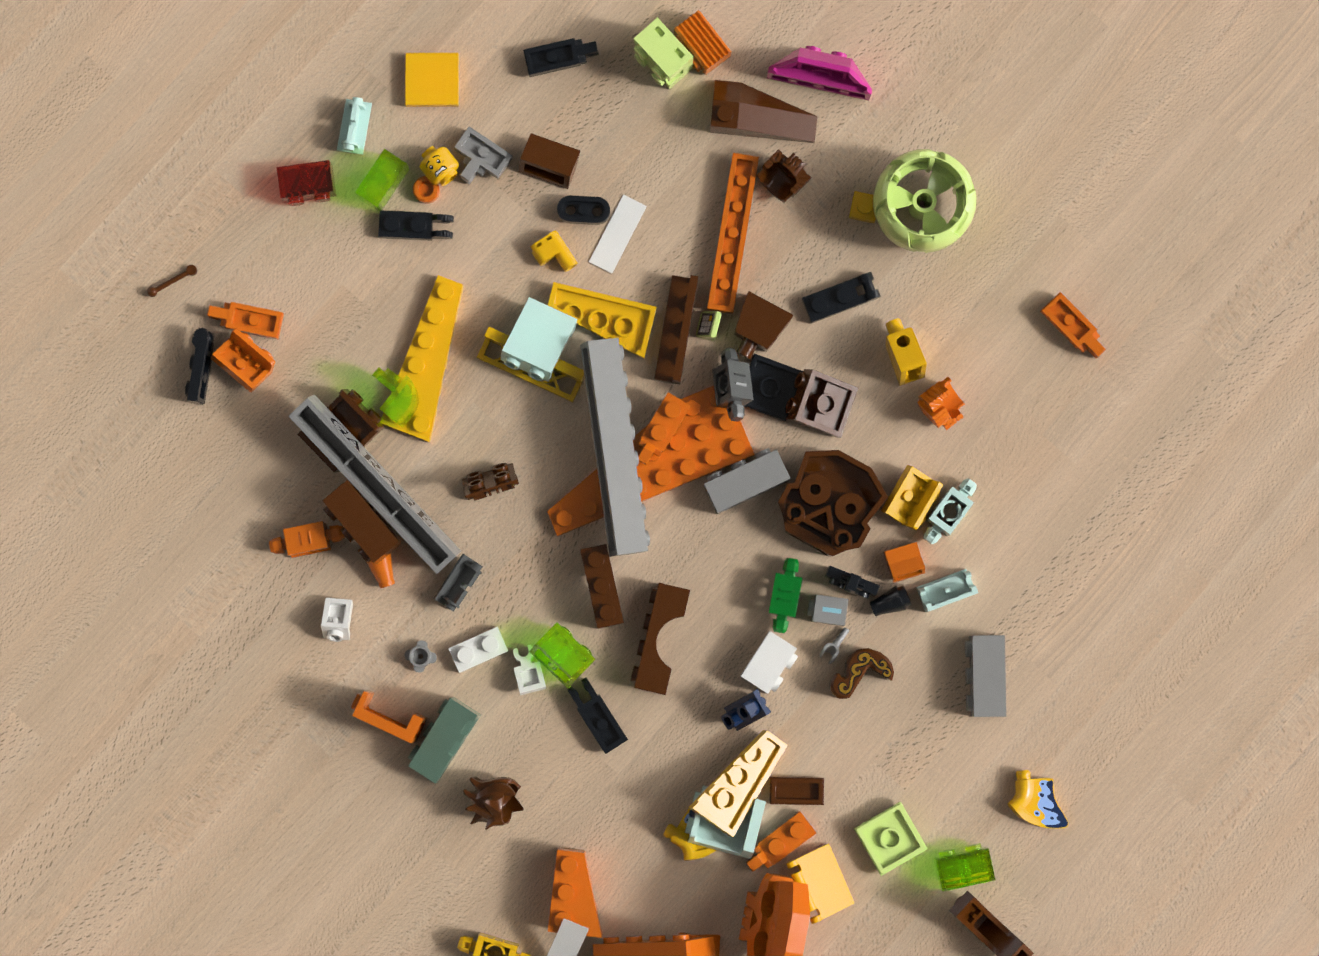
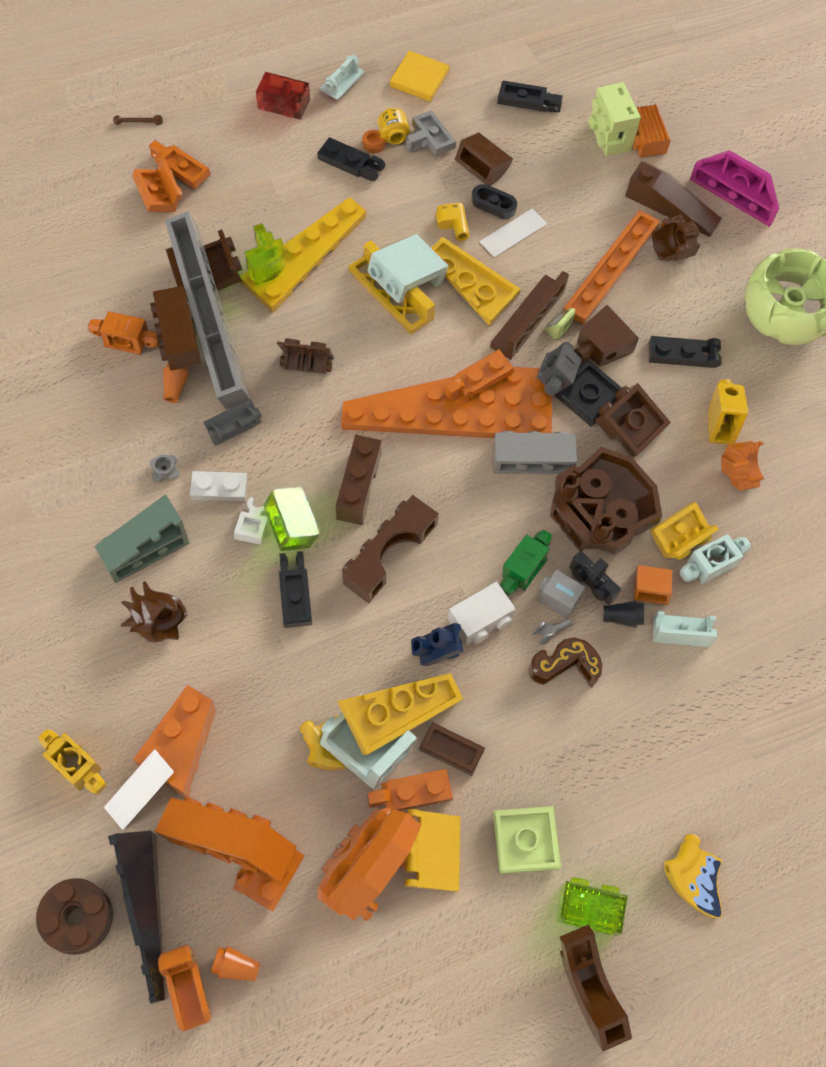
camera: 20 degrees right, 20 degrees down
(200, 365) = (119, 179): black hinge -> none
(336, 619) = (108, 404): white bracket -> none
(363, 712) = (88, 479): orange panel -> none
(382, 180) = (342, 116): clear neon green brick -> none
(614, 447) = (428, 371): light grey brick -> none
(862, 207) = (732, 295): yellow plate -> none
(986, 676) = (692, 724): light grey brick -> none

